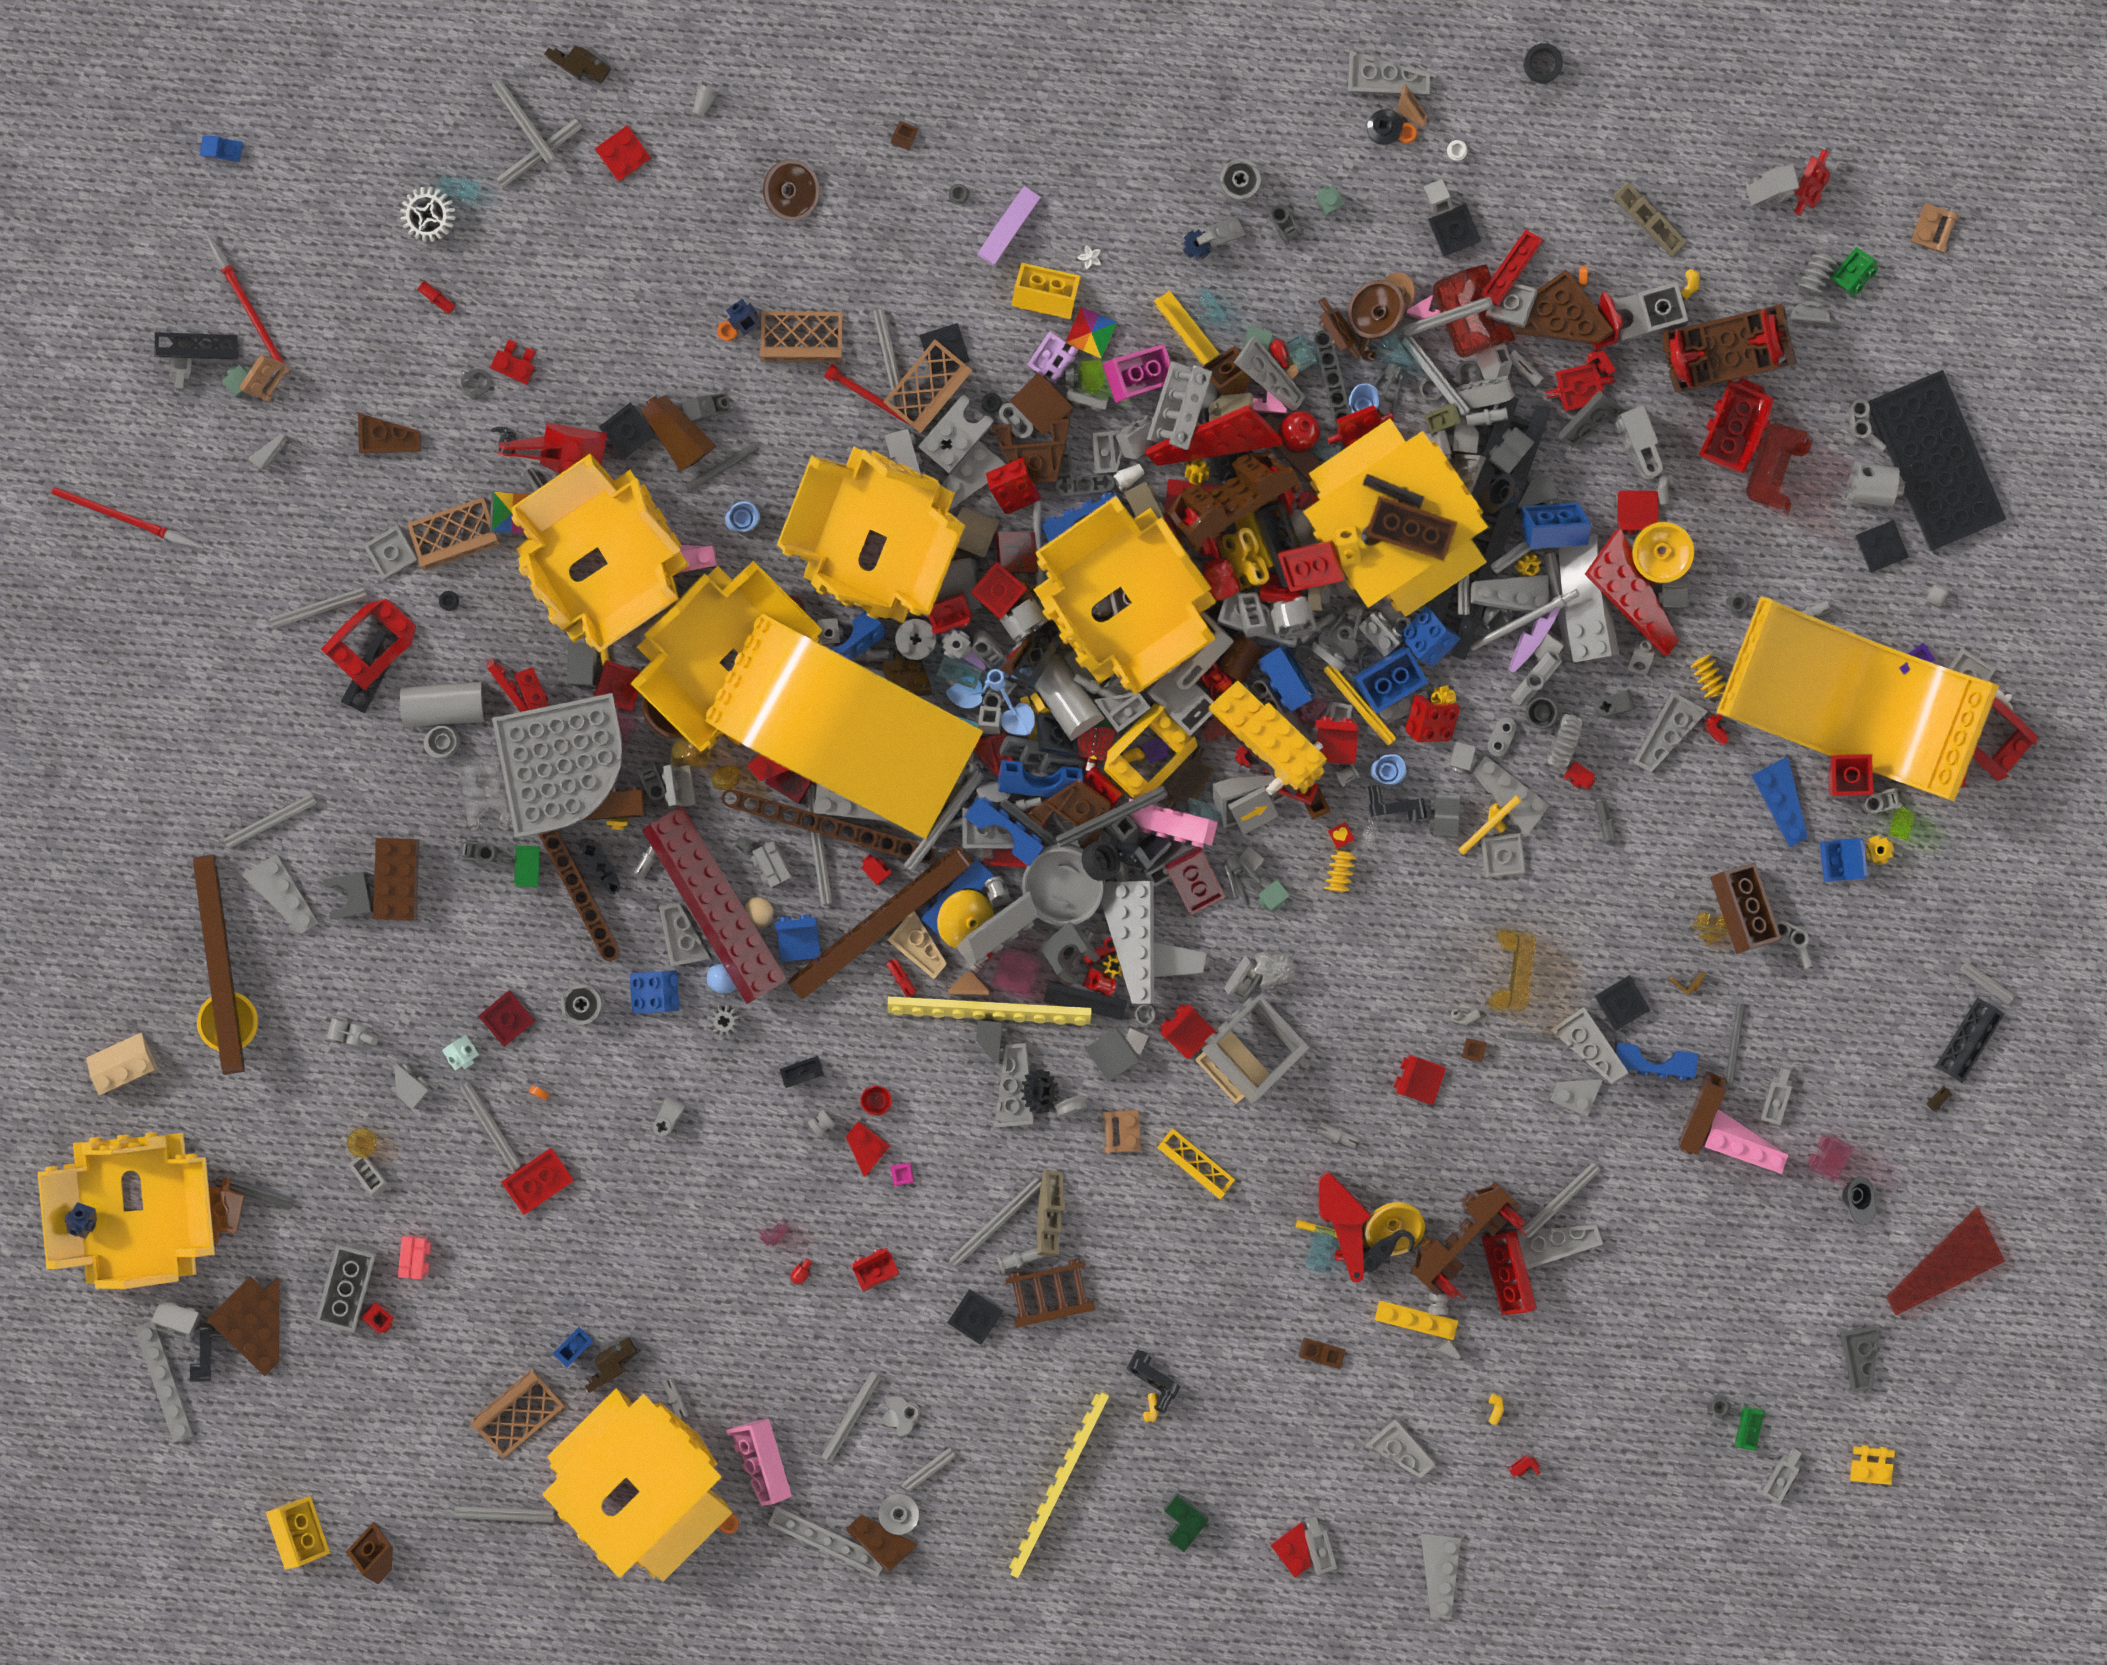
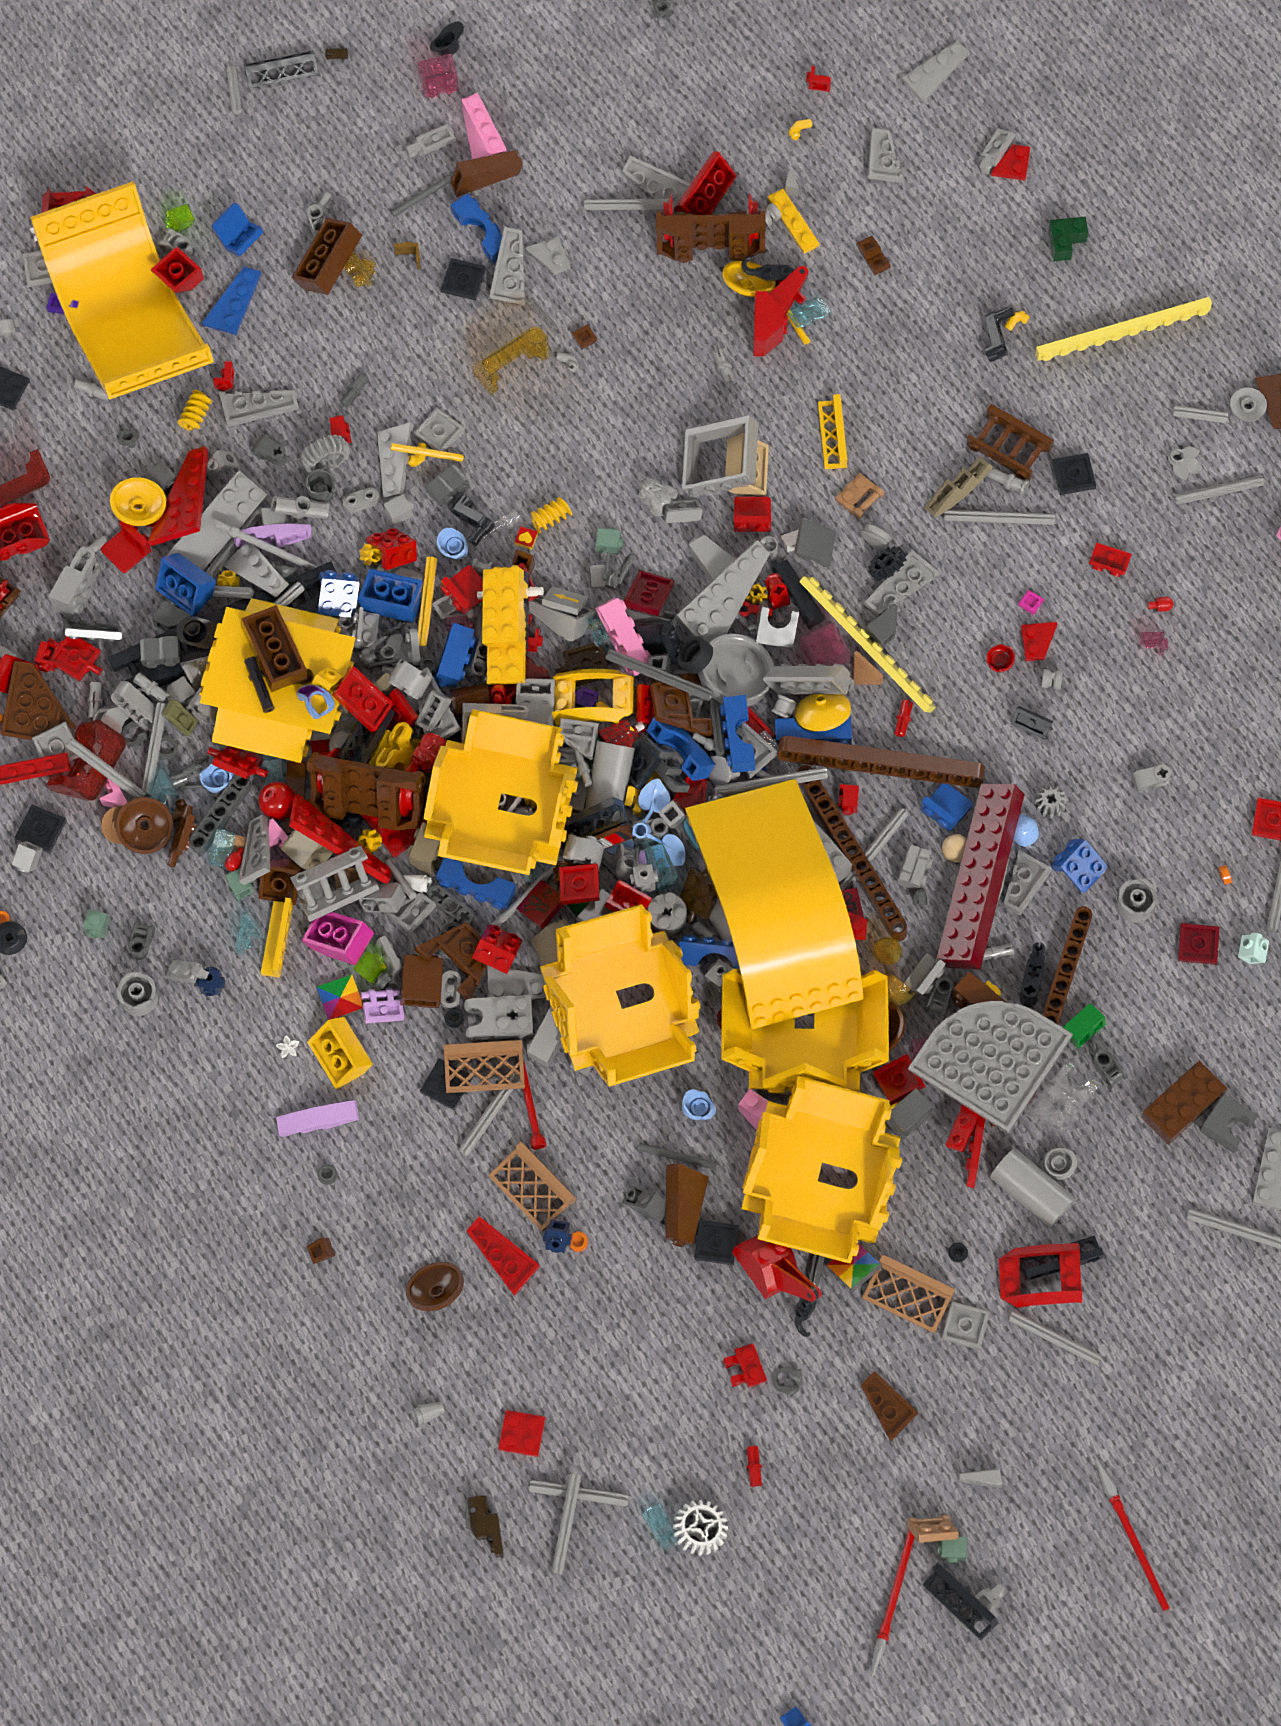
camera: 135 degrees left, 20 degrees down
(764, 265) = (505, 1257): none -> red wing
(917, 945) = (872, 724): tan wing -> none
(1141, 465) = (400, 878): none -> light grey bar
(1350, 522) = (305, 694): none -> medium blue piece
(1419, 1079) = (637, 351): red bracket -> none
(1871, 850) = (207, 216): yellow brick -> none

